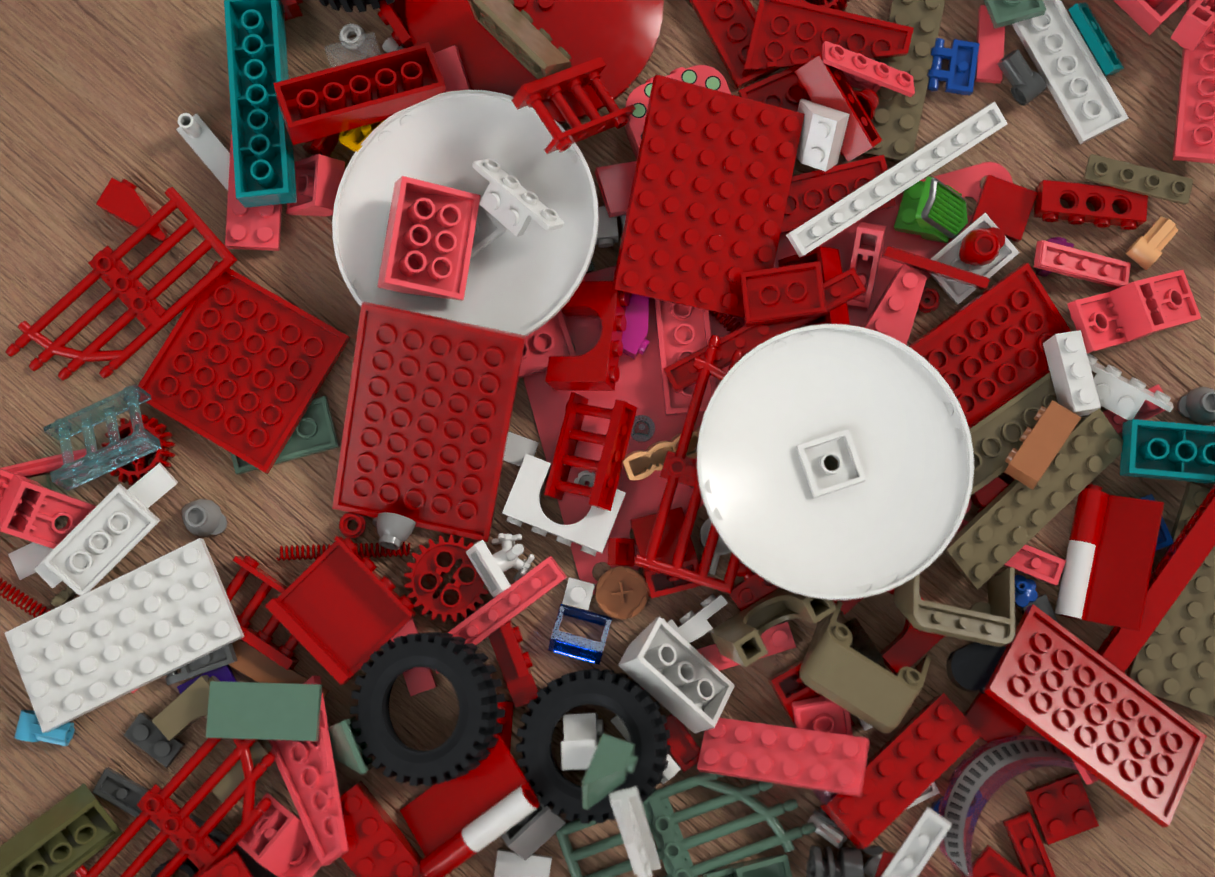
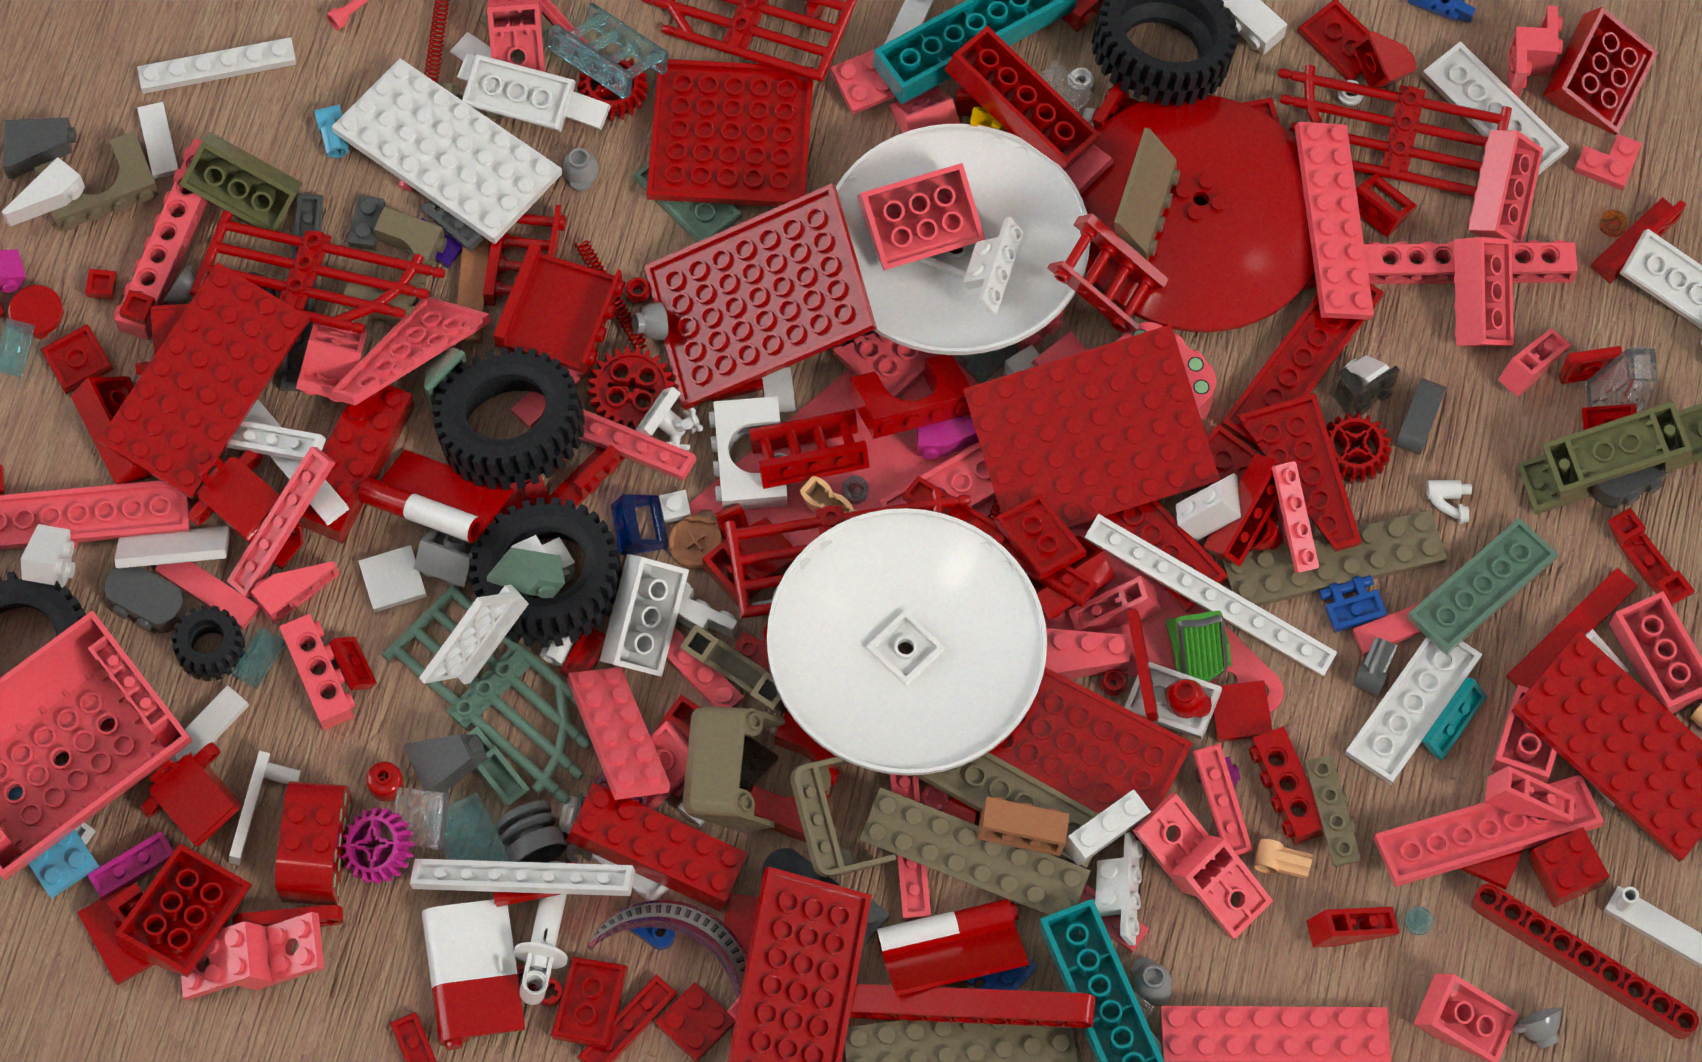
camera: 60 degrees right, 15 degrees down
(264, 711) = (439, 286): sand green tile -> none
(1025, 594) = (882, 891): blue plant -> none

